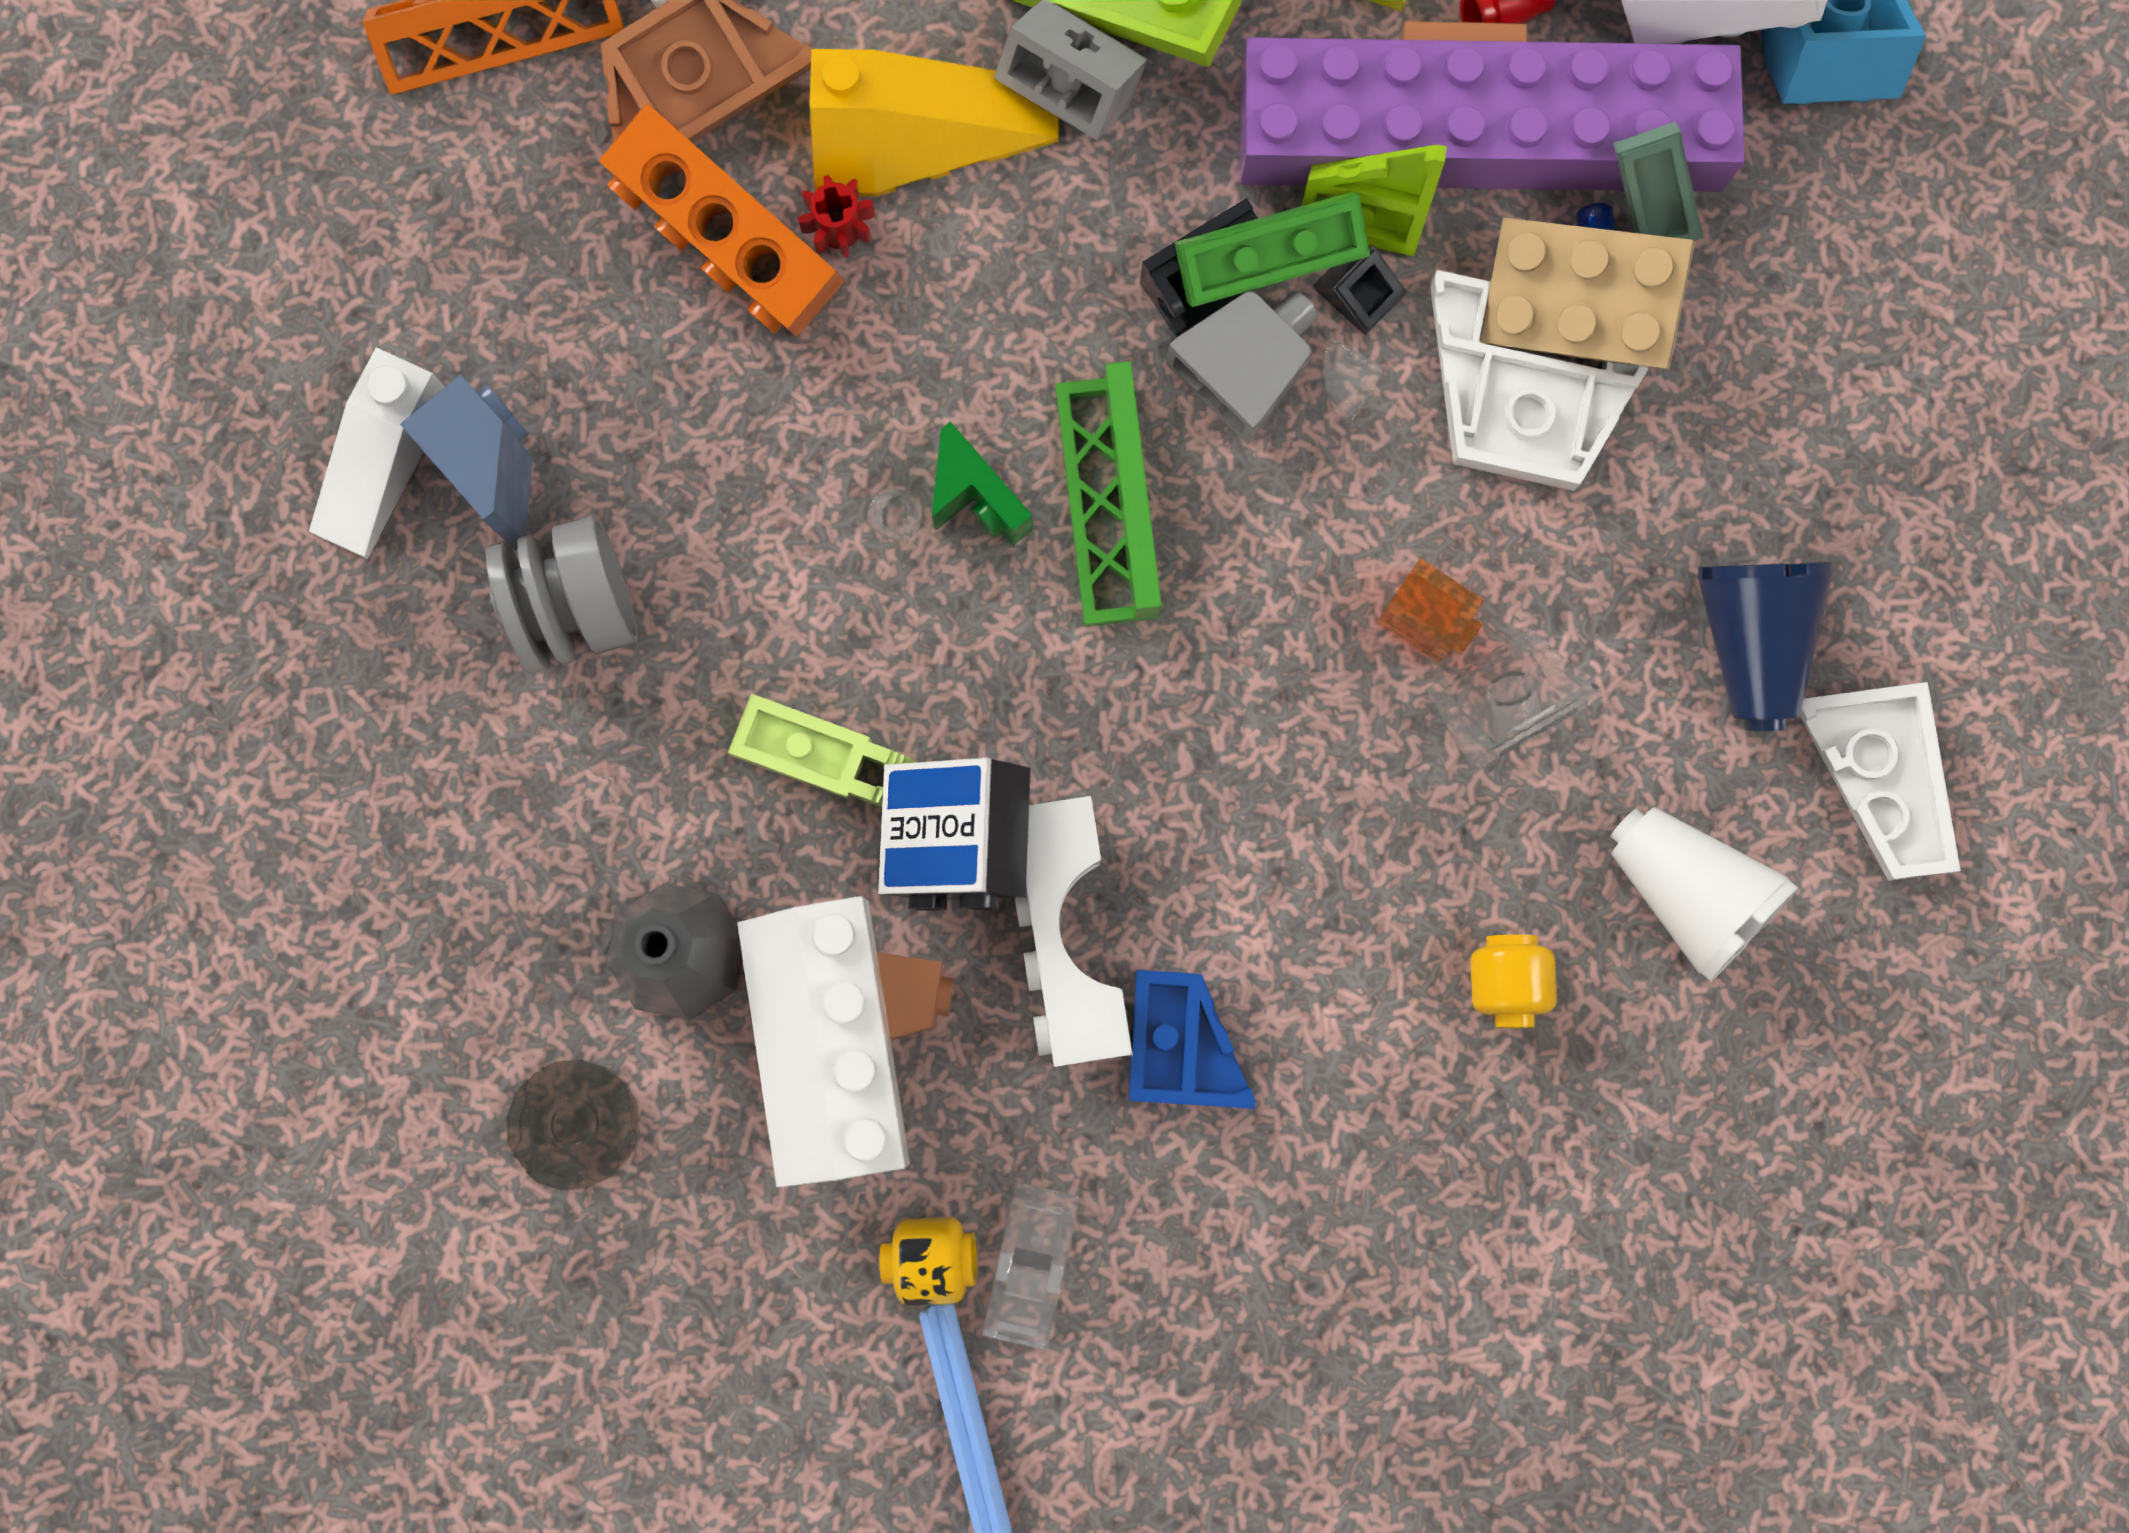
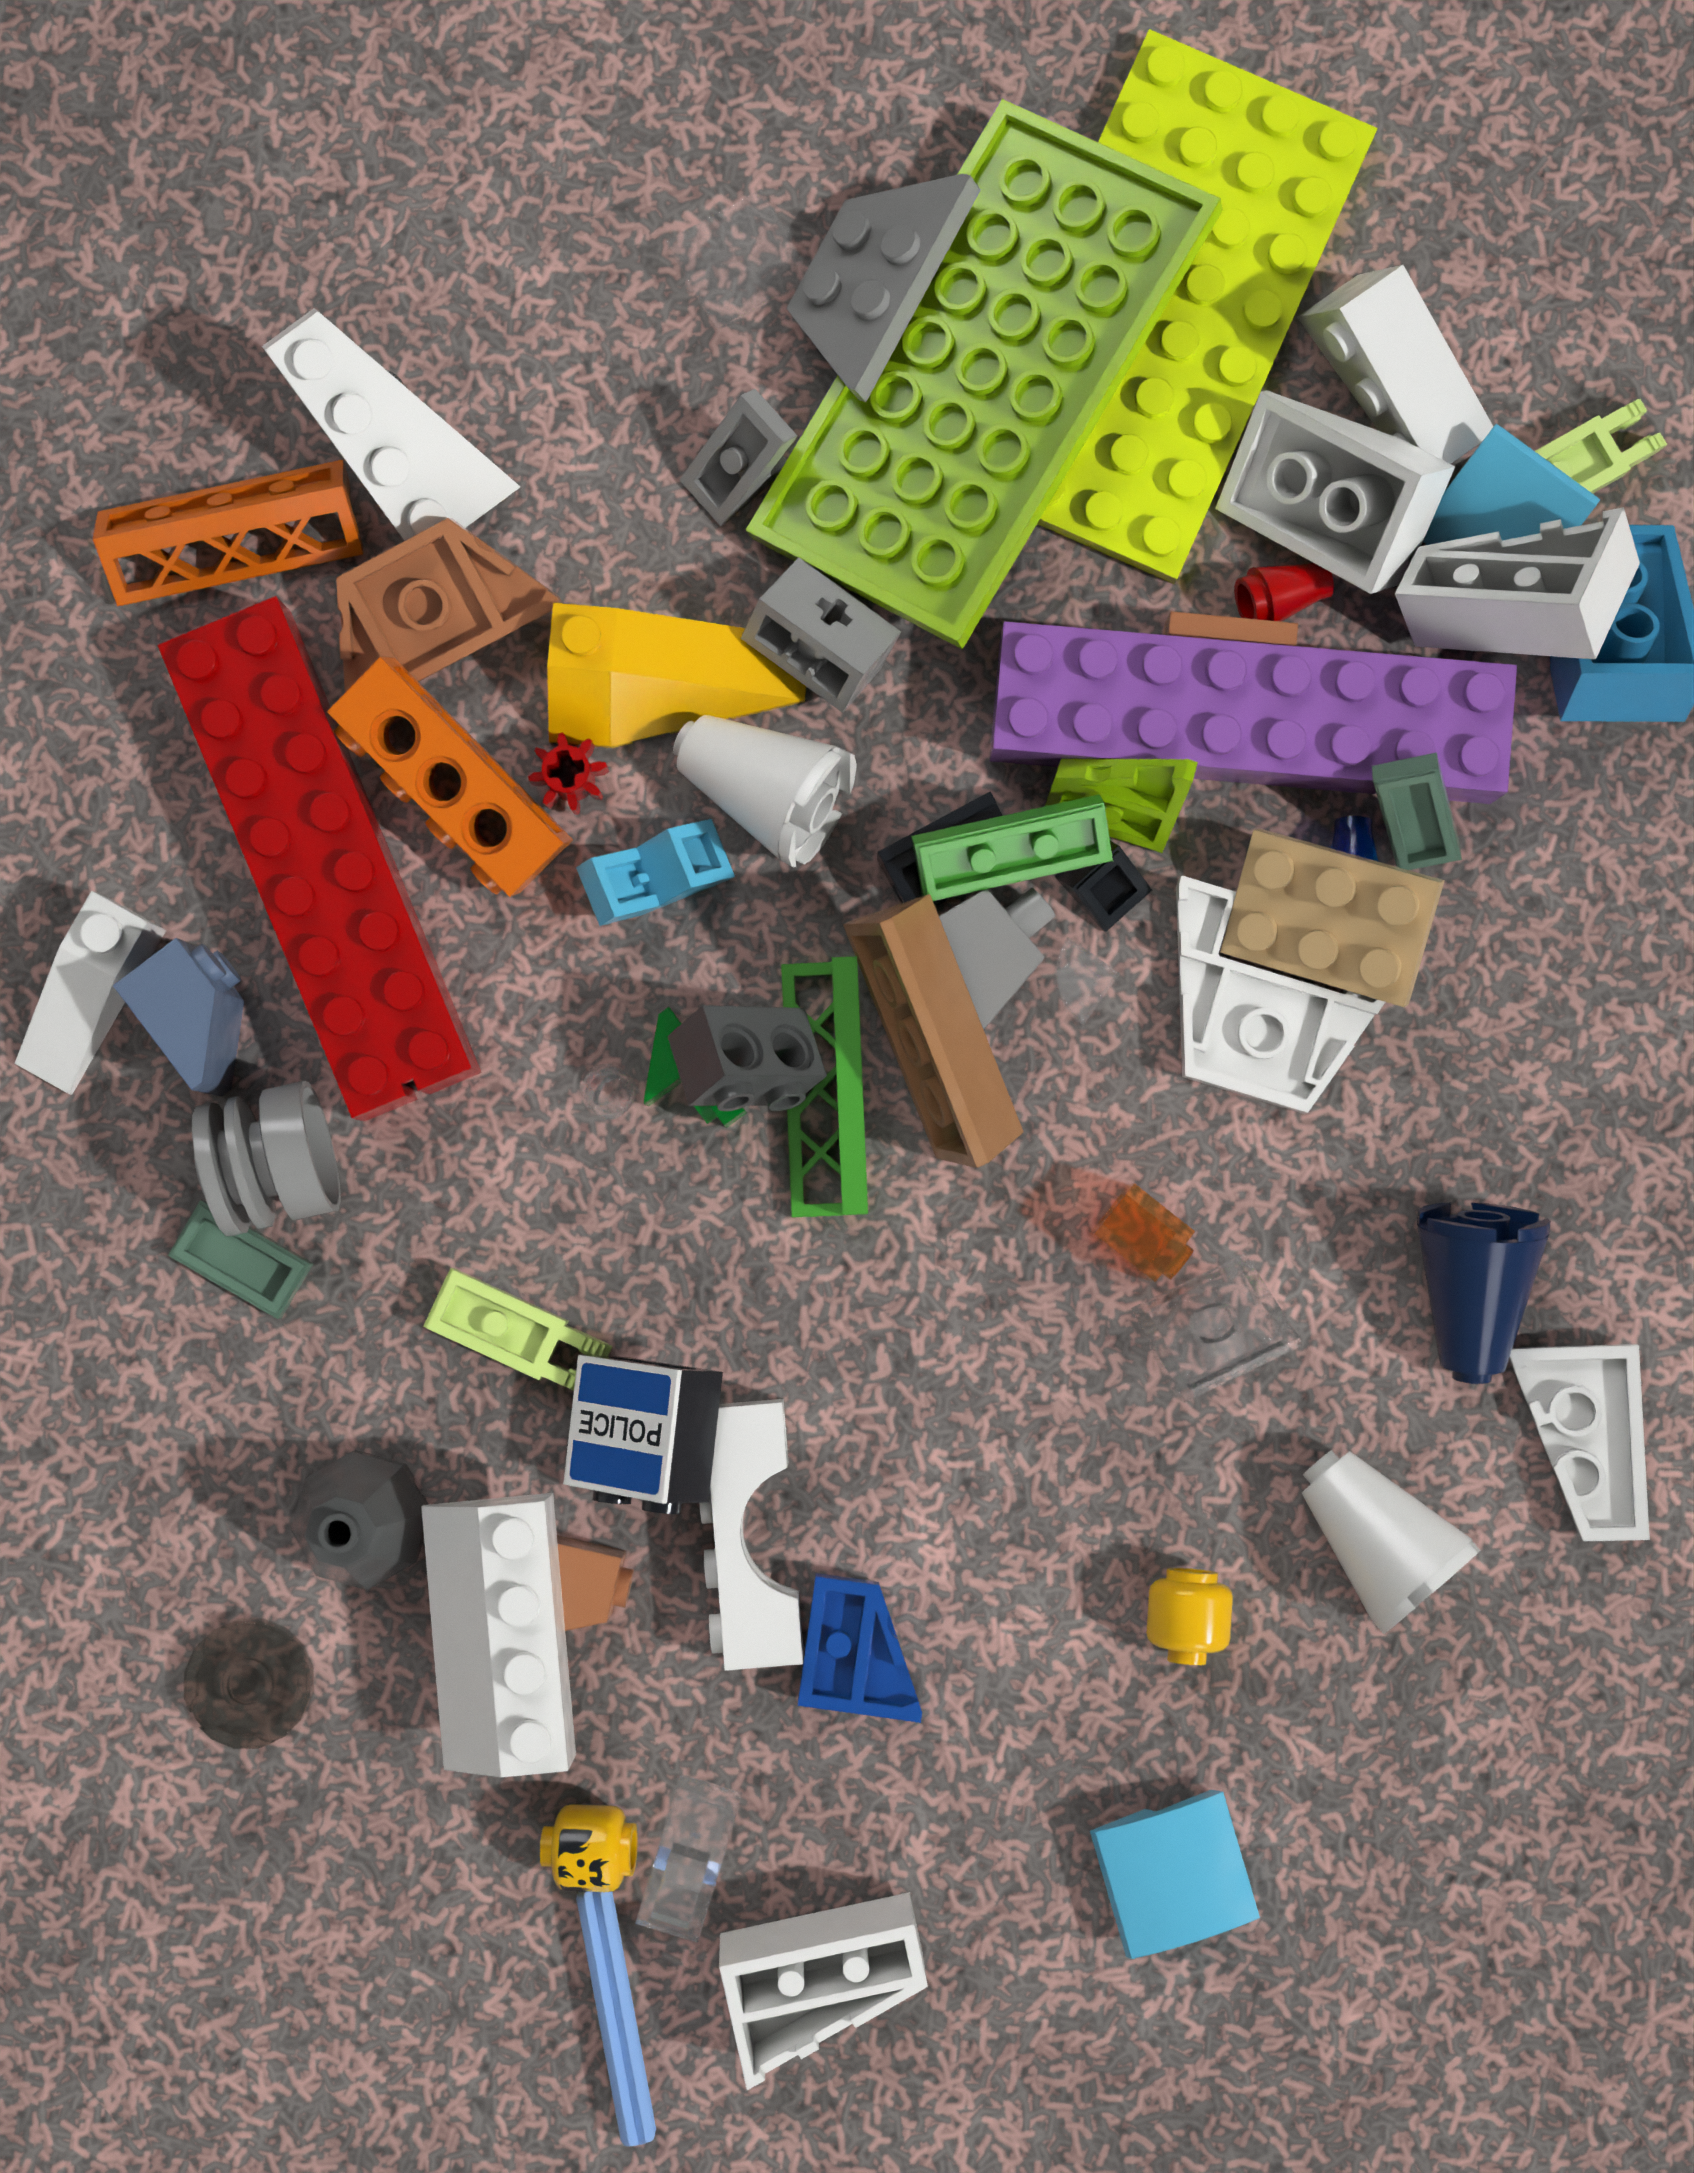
camera: 10 degrees right, 5 degrees up
(542, 705) = (243, 1263): none -> sand green tile
(599, 312) = (319, 859): none -> red piece
(934, 304) = (656, 872): none -> medium azure slope
(1030, 460) = (746, 1057): none -> dark grey brick
(1031, 207) = (768, 782): none -> white cone
(1172, 1374) = (815, 1976): none -> white wedge
(1209, 423) = (935, 1032): none -> medium nougat slope
(1523, 1244) = (1174, 1874): none -> medium azure slope

